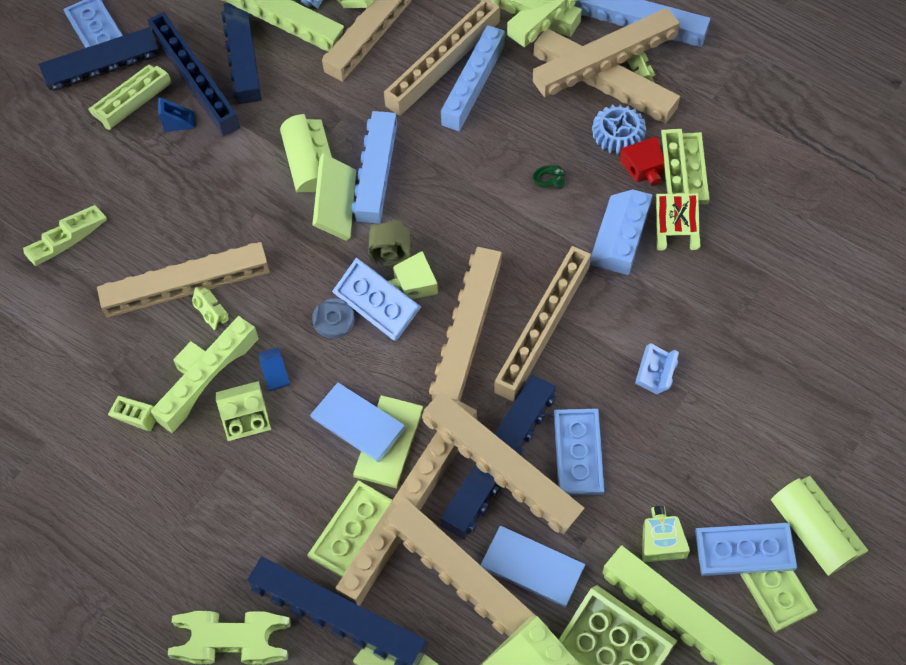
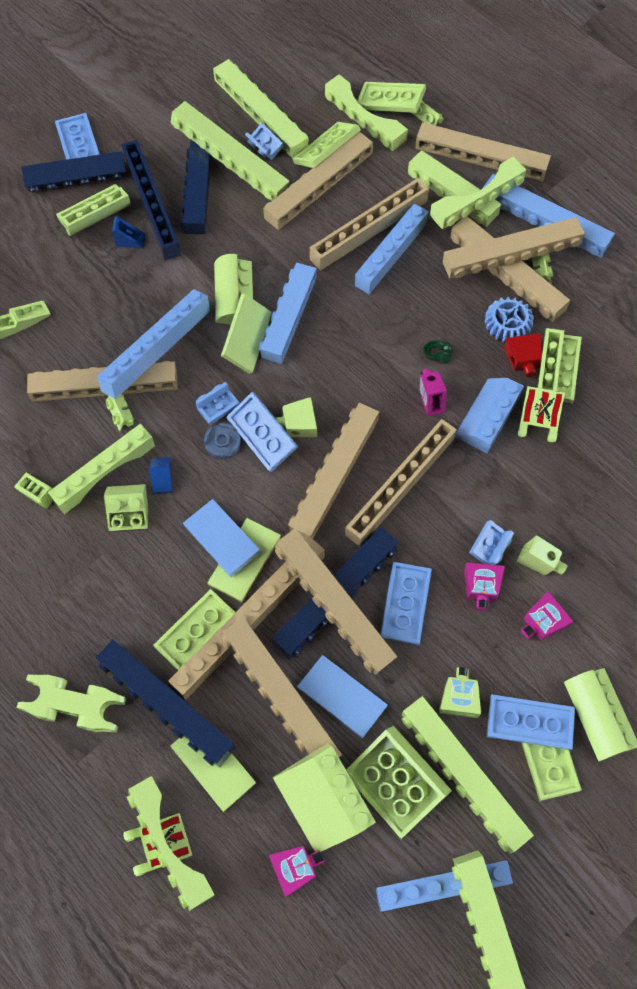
camera: 10 degrees right, 5 degrees up
(188, 357) = (90, 450): yellowish green panel -> none
(233, 227) = (153, 344): none -> light blue brick
(318, 278) = (216, 403): none -> light blue bracket
(389, 243) = (283, 384): olive brick -> none
(553, 212) = (430, 385): none -> dark pink torso
(657, 412) = (483, 583): none -> dark pink torso
(714, 371) = (541, 557): none -> yellowish green torso
(735, 436) = (545, 619): none -> dark pink torso

